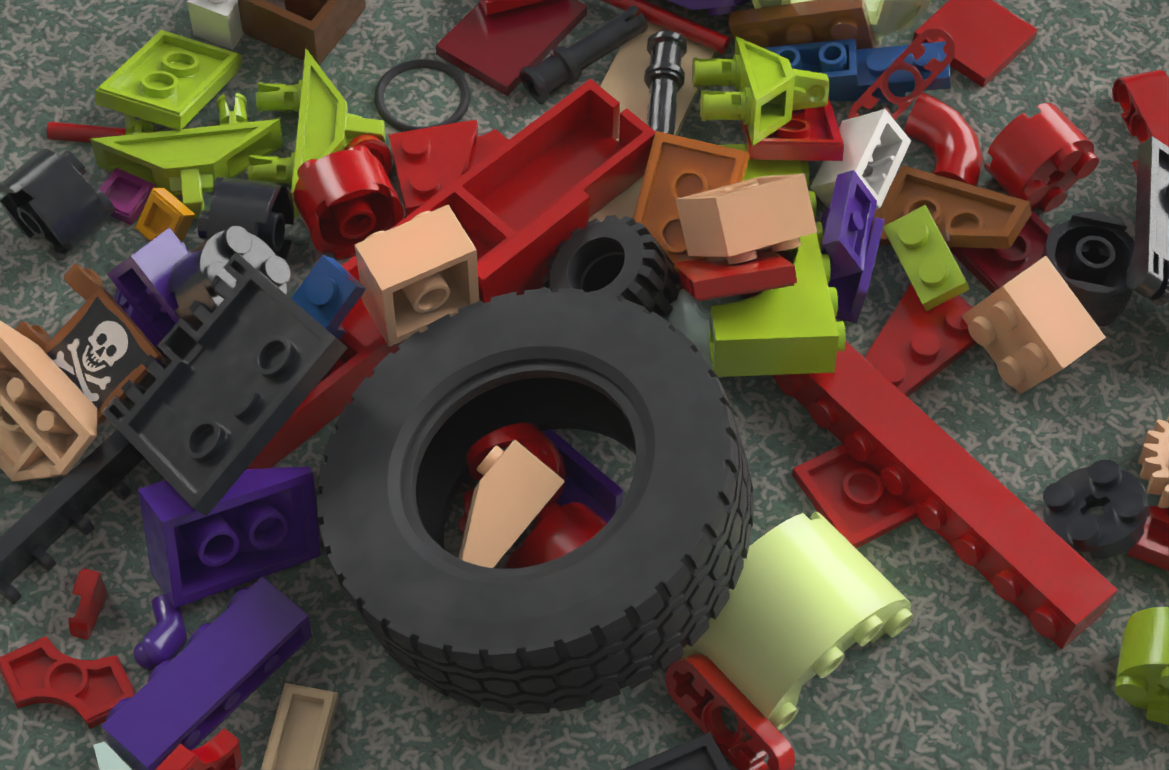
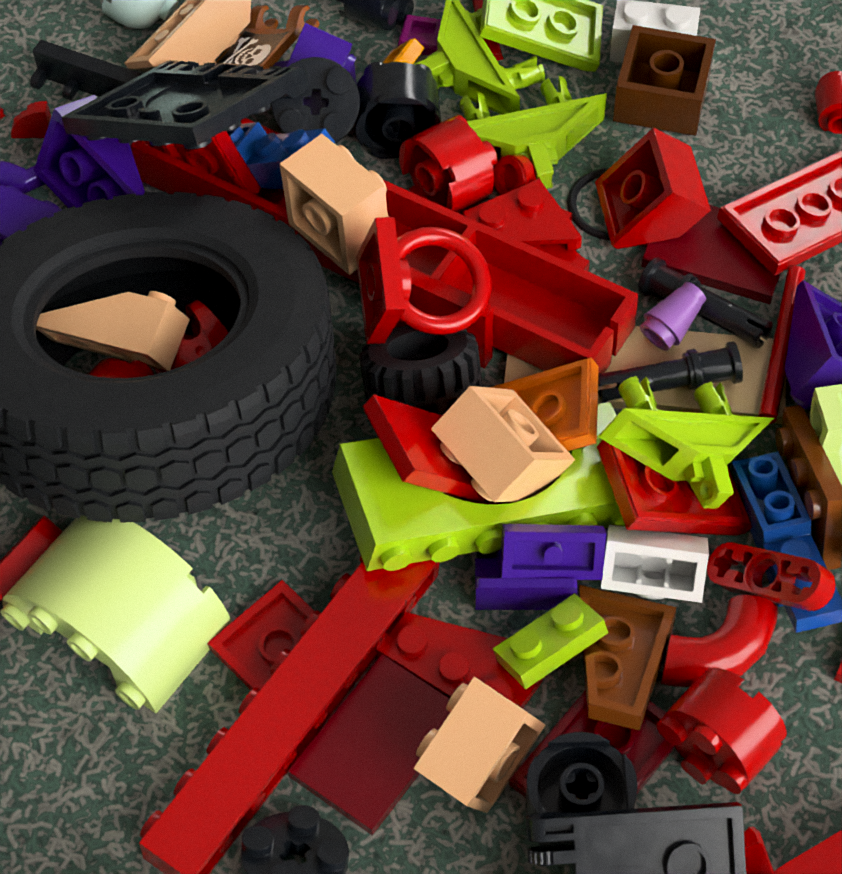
camera: 80 degrees right, 0 degrees up
(445, 52) = (652, 192): none -> red slope
(541, 244) = (387, 280): none -> red tile
(602, 68) = (672, 317): none -> medium lavender cone
(990, 422) = (370, 744): none -> dark red tile

